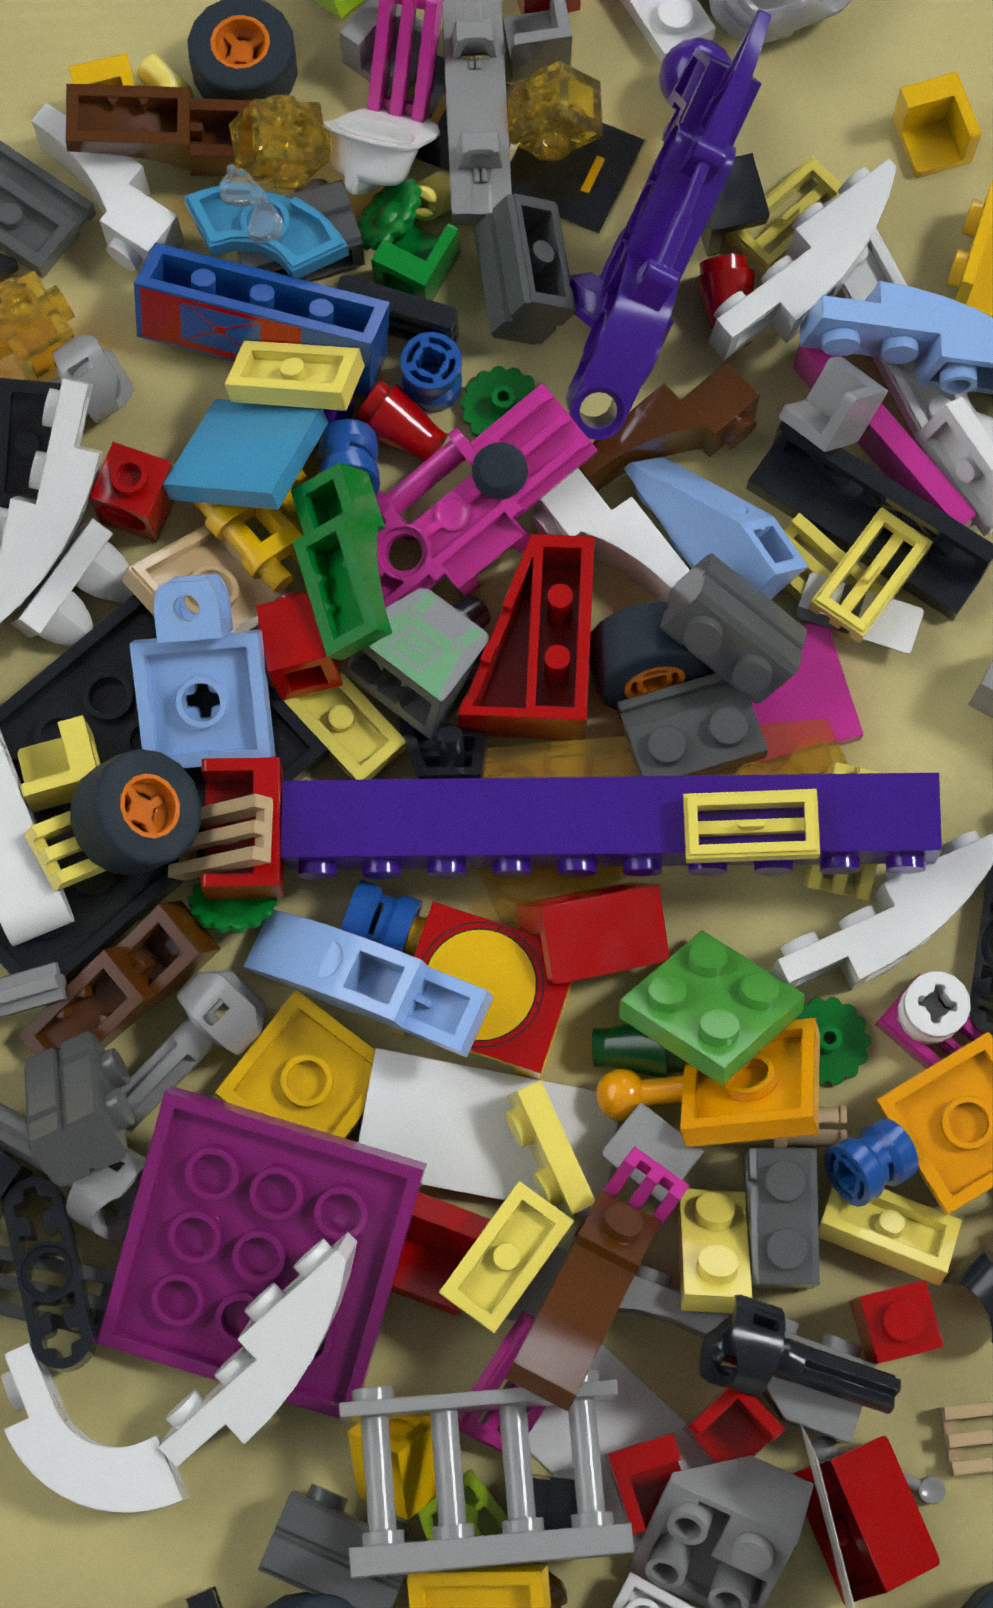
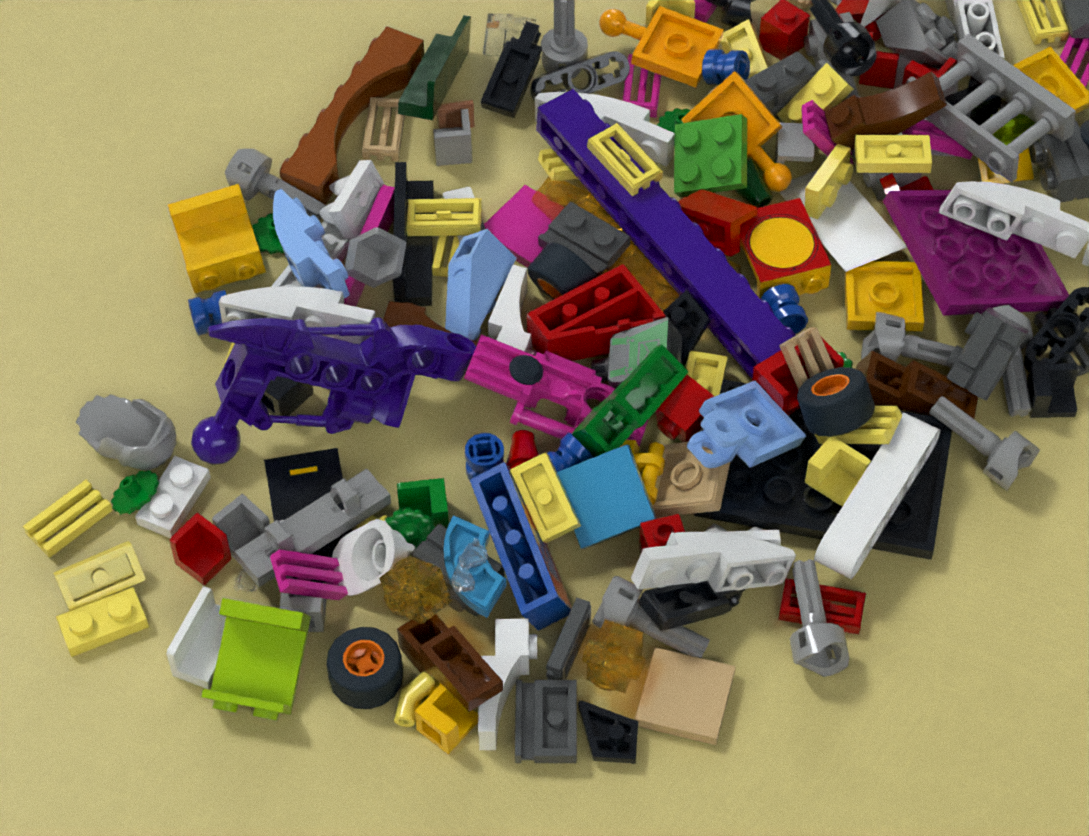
camera: 125 degrees left, 20 degrees down
(95, 296) = (569, 641): none -> dark grey tile
(369, 980) = (823, 279): light blue slope -> none
(408, 313) = (462, 489): black tile -> none
(493, 396) = (470, 423): green piece -> none
(524, 269) = (397, 444): dark grey brick -> none
(554, 111) = (290, 484): clear yellow brick -> none
(734, 629) = (528, 232): dark grey brick -> none
(916, 190) = (206, 311): none -> blue wheel
(930, 1020) = (637, 82): white wheel -> none
(936, 125) = (161, 327): yellow panel -> none

